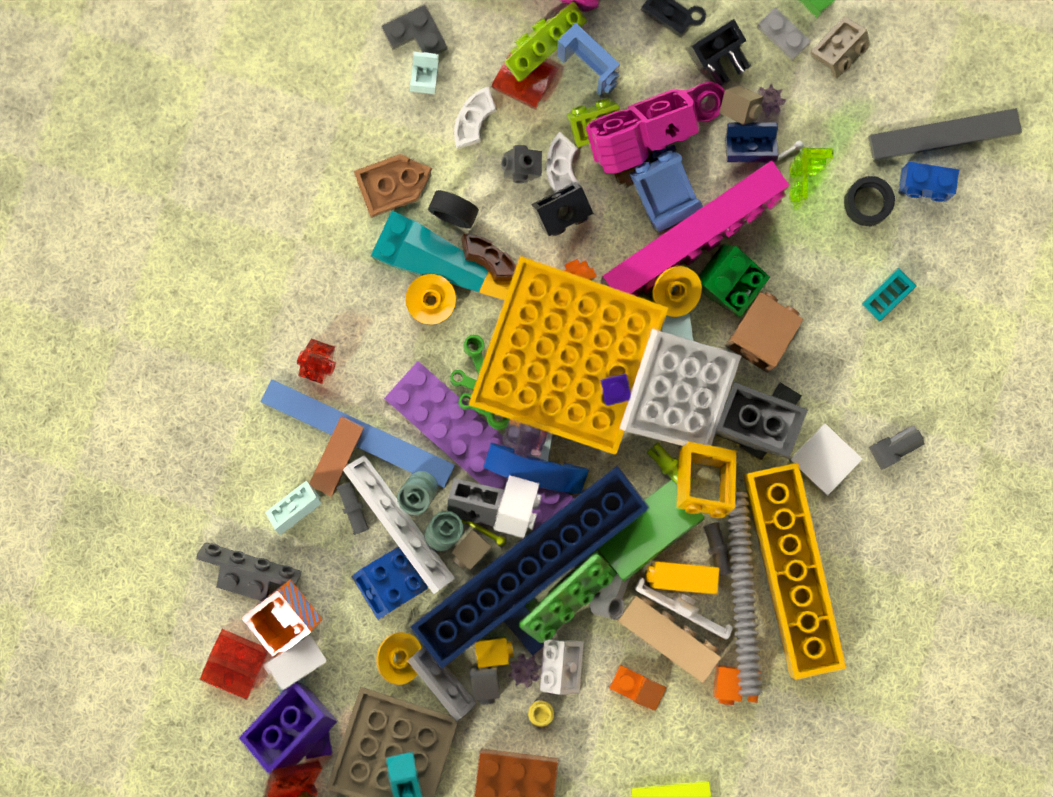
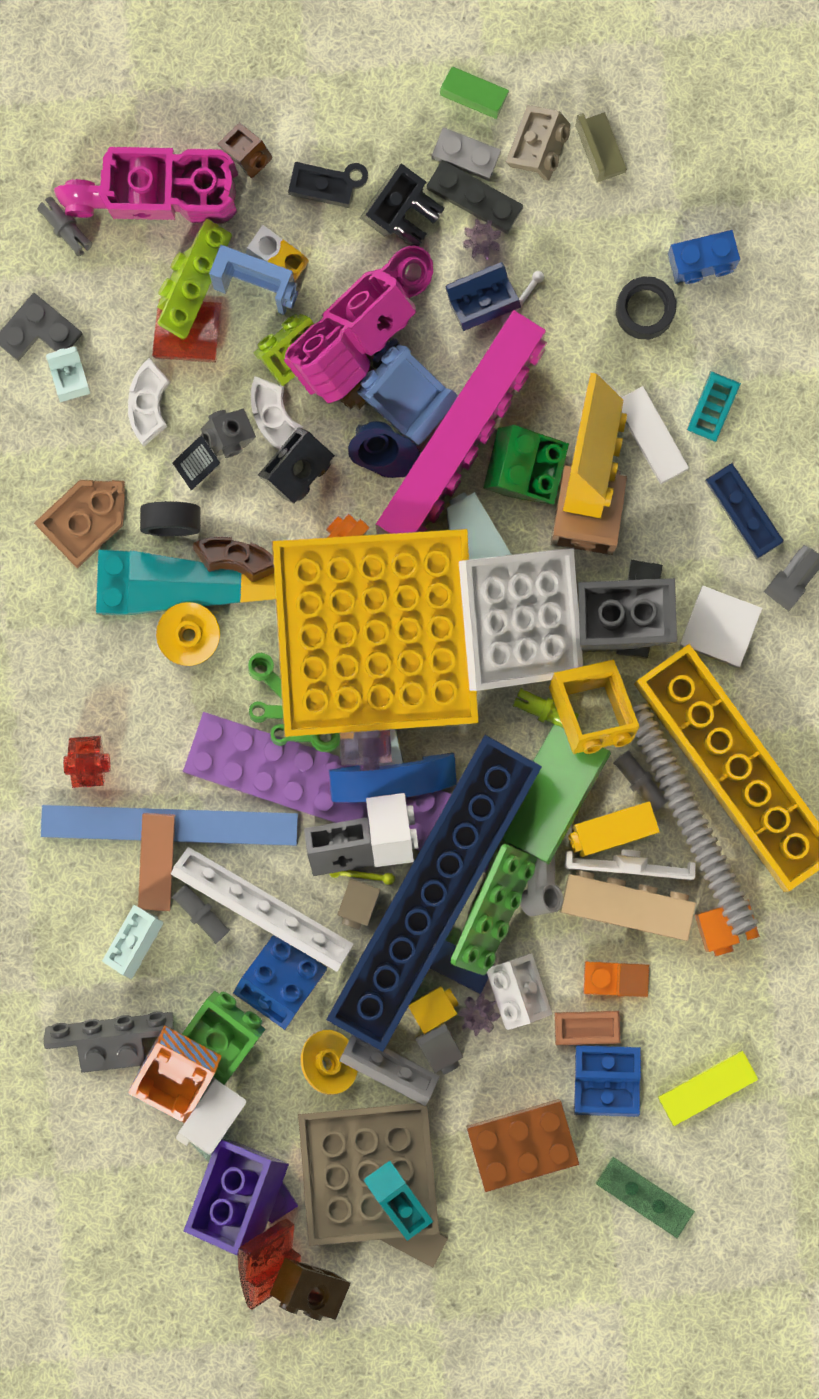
camera: 25 degrees left, 0 degrees up
(234, 664) = (141, 1152): clear red slope -> none
(333, 603) = (225, 1031): none -> bright green plate
(417, 493) = (269, 863): sand green wheel -> none
(443, 531) = (317, 902): sand green wheel -> none
(490, 176) = (196, 462): none -> black sticker
(541, 713) = (518, 1056): light yellow plate -> none
(599, 760) = (607, 1081): none -> blue slope
(601, 714) = (587, 1027): none -> nougat tile
(613, 43) = (275, 250): none -> leg
(615, 389) = (446, 648): dark purple plate -> none
(630, 224) = (382, 450): none -> dark blue piece
(687, 292) = (480, 509): yellow dish -> none
(741, 104) = (452, 258): dark tan brick -> none
(776, 67) = (474, 196): none -> pearl dark grey plate
(788, 289) = (595, 450): none -> yellow slope
(806, 162) = (553, 294): clear neon green bracket -> none
(833, 296) = (652, 436): none -> white tile
(879, 381) = (744, 511): none -> dark blue tile
(885, 69) = (600, 146): none -> olive panel
(944, 134) = (700, 194): dark grey tile -> none

